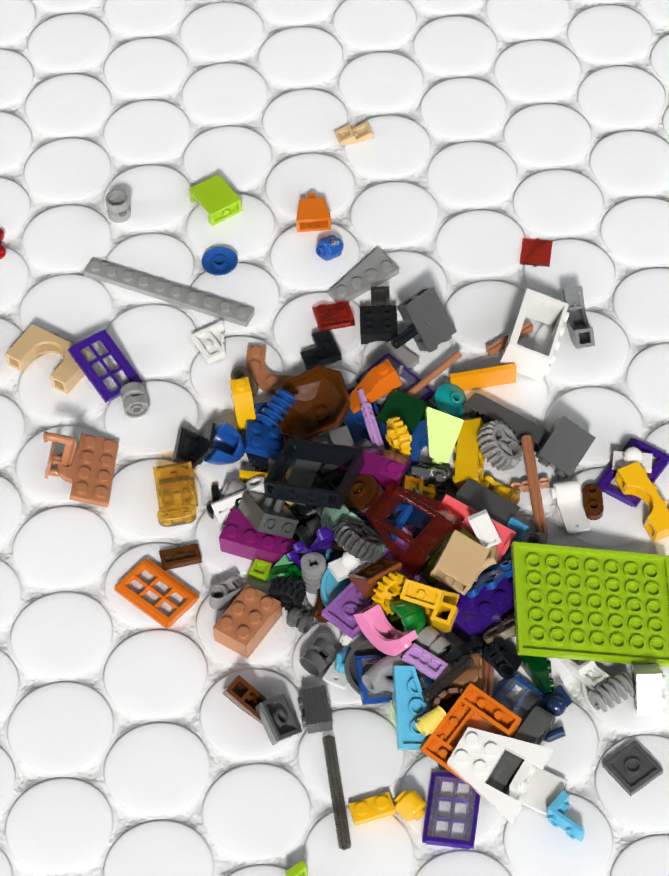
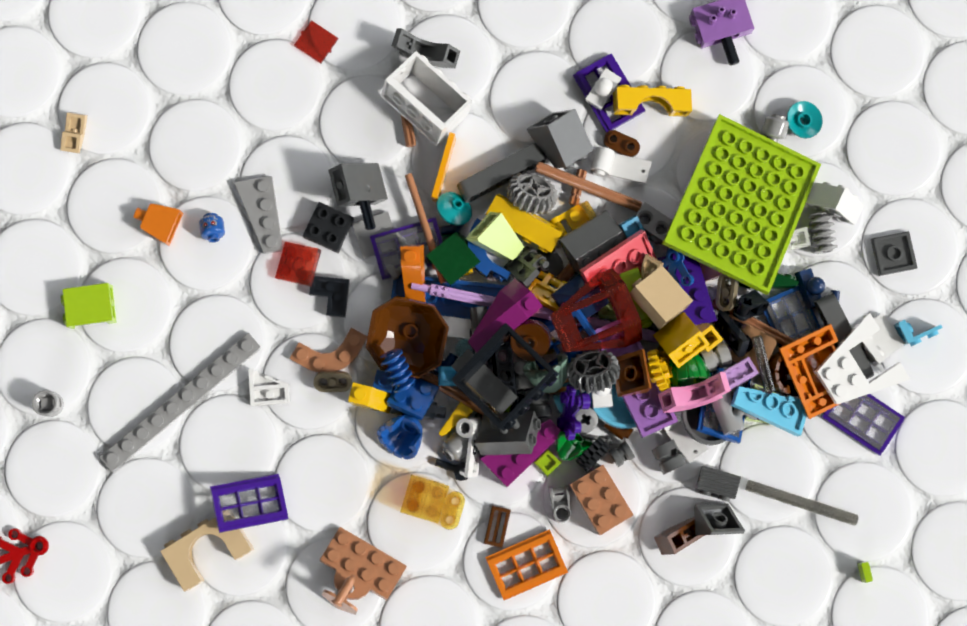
camera: 65 degrees left, 30 degrees up
(134, 399) = (295, 489): light grey wheel -> none
(194, 446) = (387, 460): black bracket -> none
(219, 261) = (162, 337): blue dish -> none
(340, 659) = (680, 438): medium azure arm -> none
(371, 808) = (830, 481): yellow plate -> none
(380, 295) = (302, 211): clear smoke panel -> none
(398, 436) = (485, 278): yellow gear -> none
(410, 805) = (846, 450): yellow head -> none
(429, 721) = (794, 398): light yellow cone -> none
(484, 529) = (633, 257): white tile -> none

